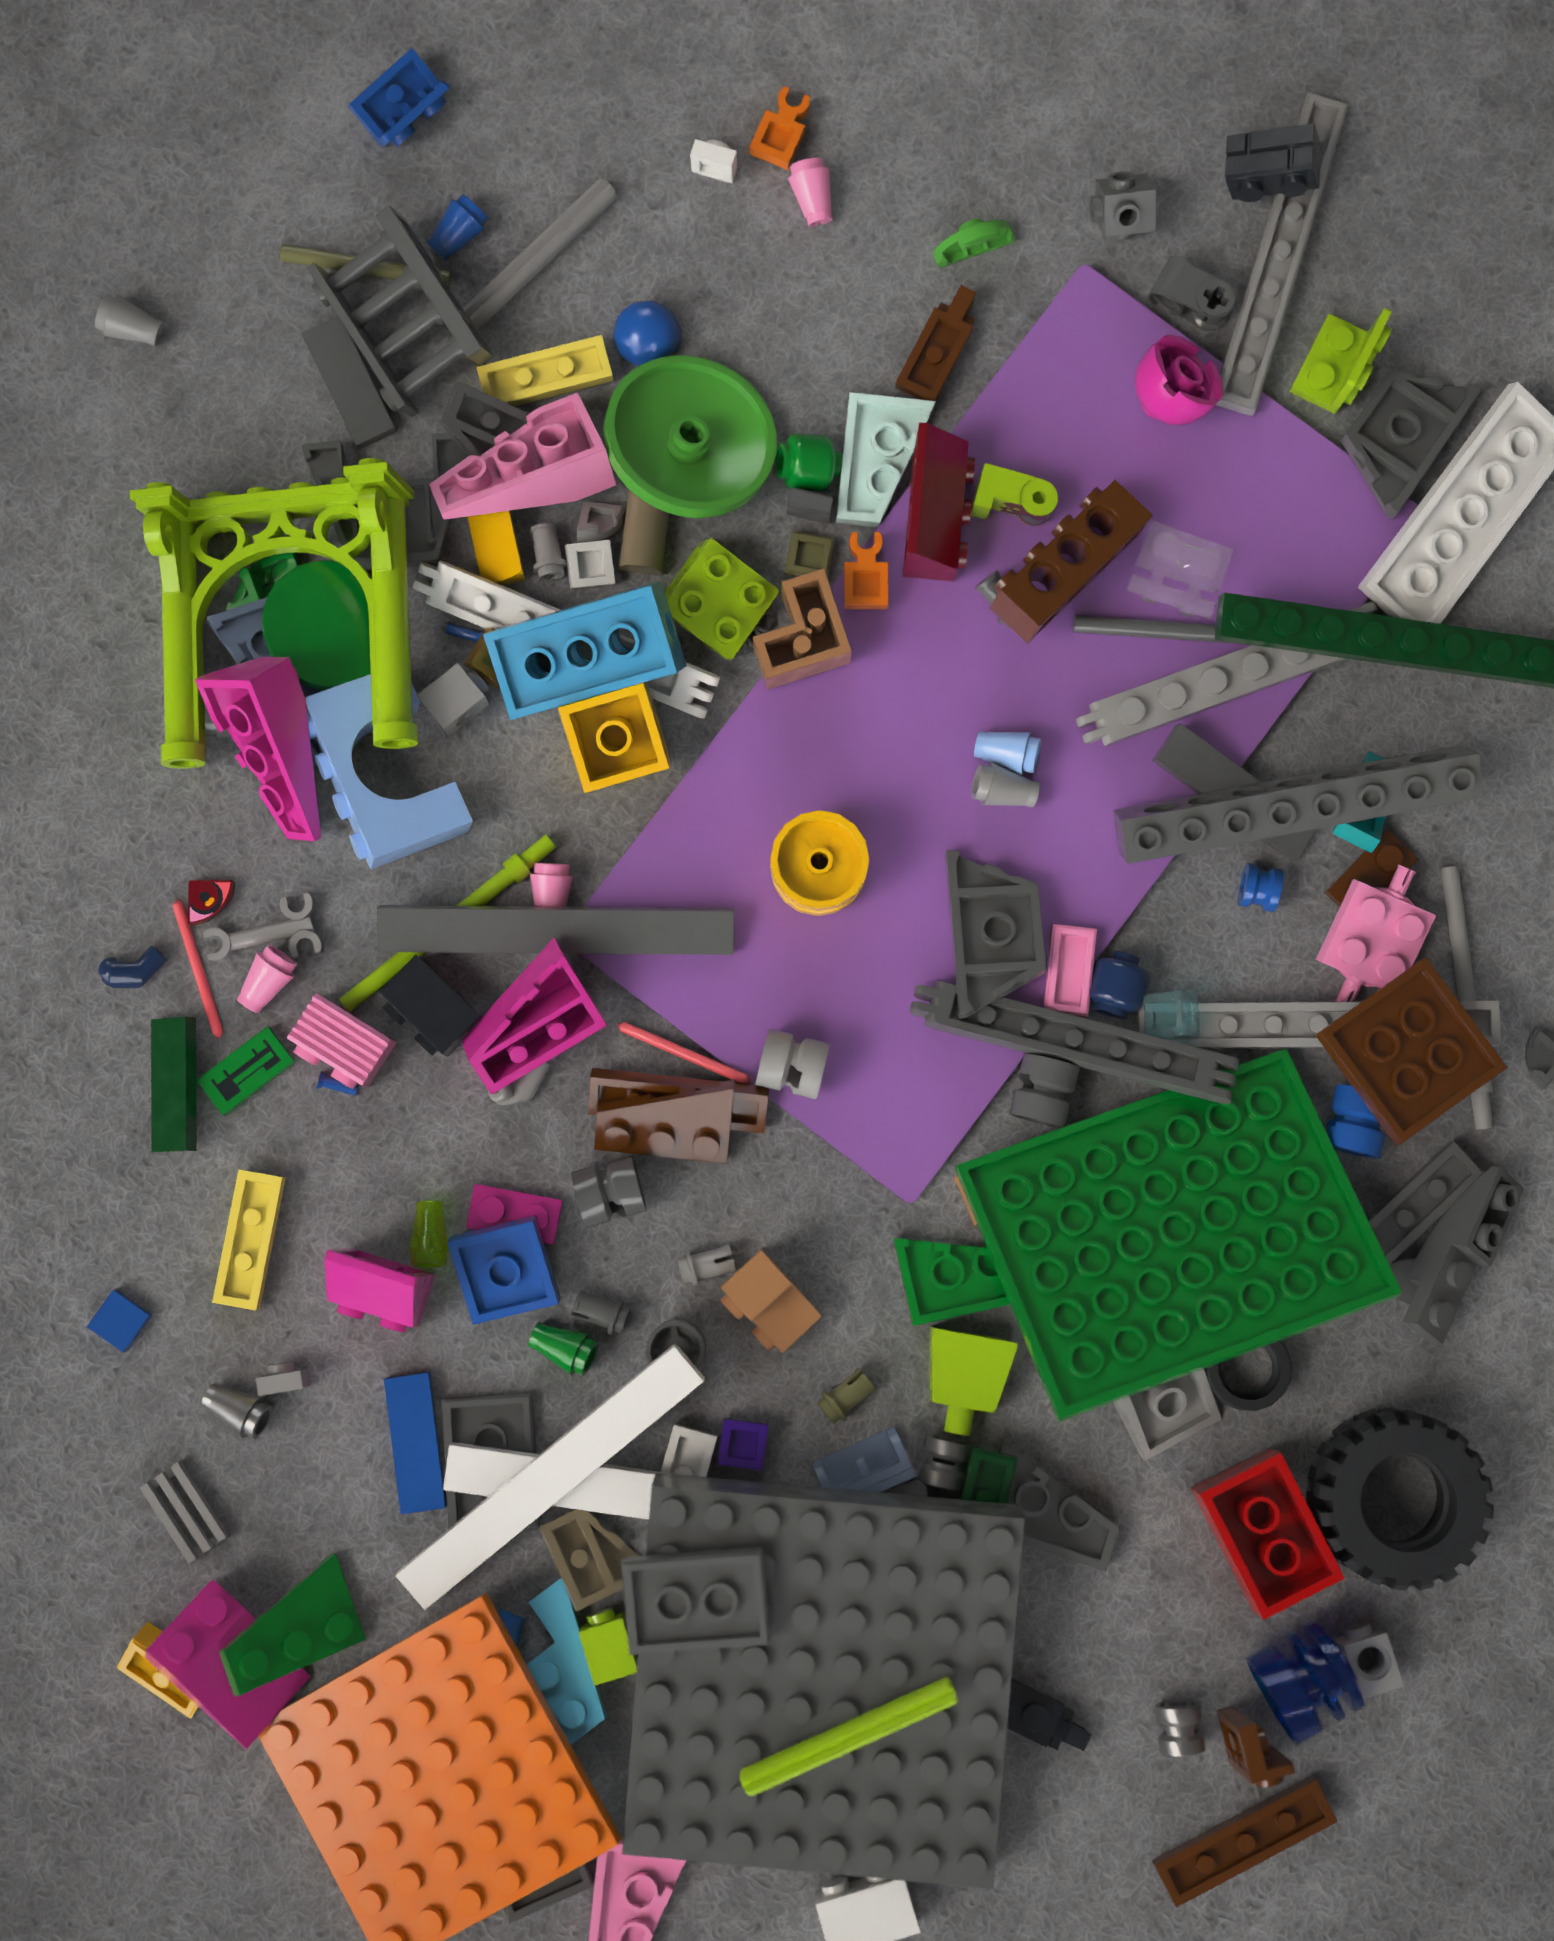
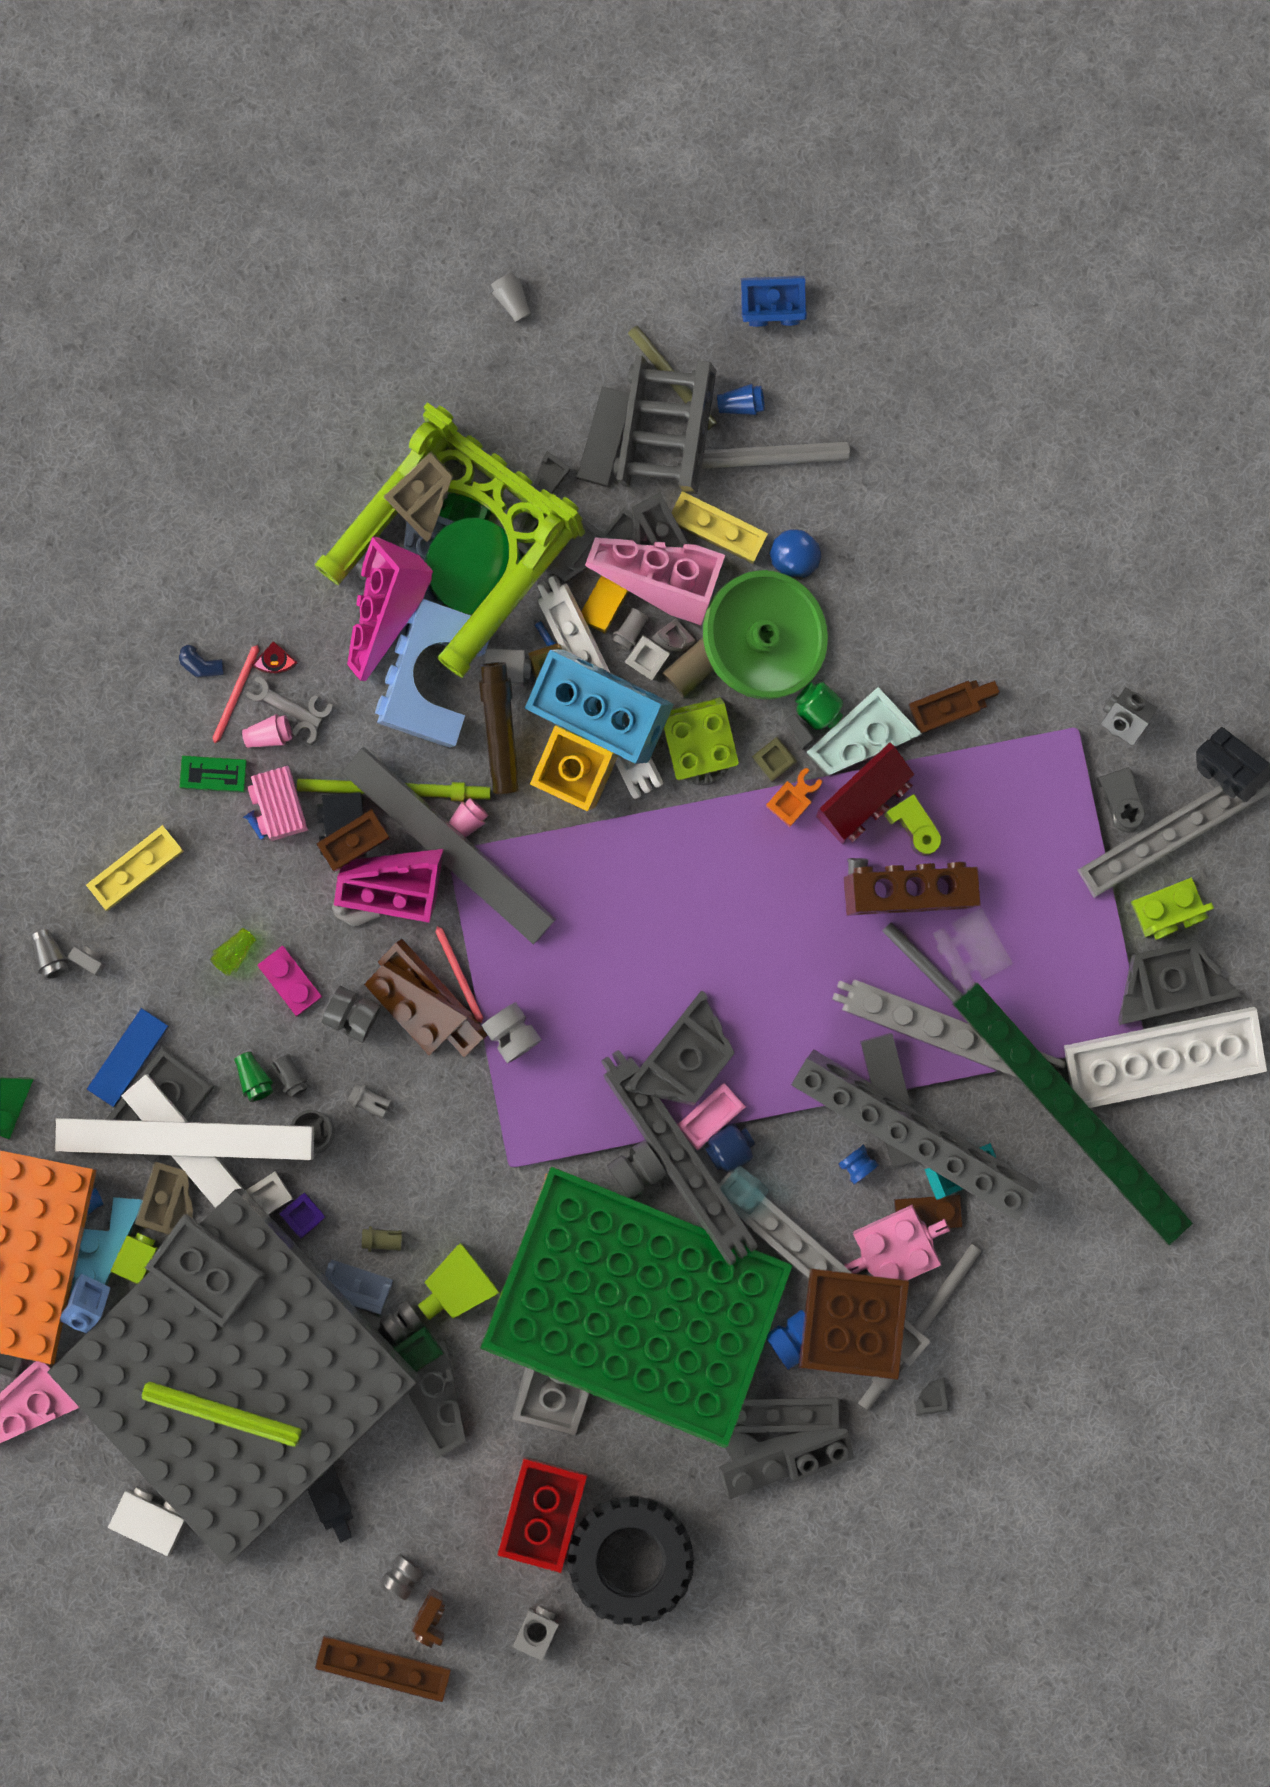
camera: 40 degrees right, 0 degrees up
(119, 1320) = (27, 850): blue tile -> none
(173, 1085) = (167, 747): dark green tile -> none
(209, 593) = (421, 494): none -> dark tan wing
(376, 1287) = (181, 955): dark pink slope -> none
(452, 1010) = (352, 841): none -> reddish brown plate
(469, 731) = (496, 697): none -> dark brown piece
(504, 1270) = (257, 1006): blue plate -> none
(599, 1745) = (85, 1304): none -> medium blue bracket
(714, 160) = (920, 487): white plate -> none
(770, 1302) = (386, 1150): medium nougat brick -> none
(780, 133) = (971, 504): orange plate -> none
(812, 189) = (960, 553): bright pink cone -> none
(812, 641) = (730, 809): medium nougat brick -> none
(819, 836) = (617, 954): yellow wheel -> none
(947, 1280) = (491, 1224): green wing -> none
(974, 239) = (1027, 660): bright green plate -> none
(1002, 787) = (763, 982): light grey cone -> none
(1010, 750) = (786, 966): light blue cone -> none
(1176, 383) = (1063, 842): dark pink cylinder -> none
(1267, 1395) = (604, 1441): black tyre -> none
(1305, 1682) = (490, 1610): clear blue wheel -> none

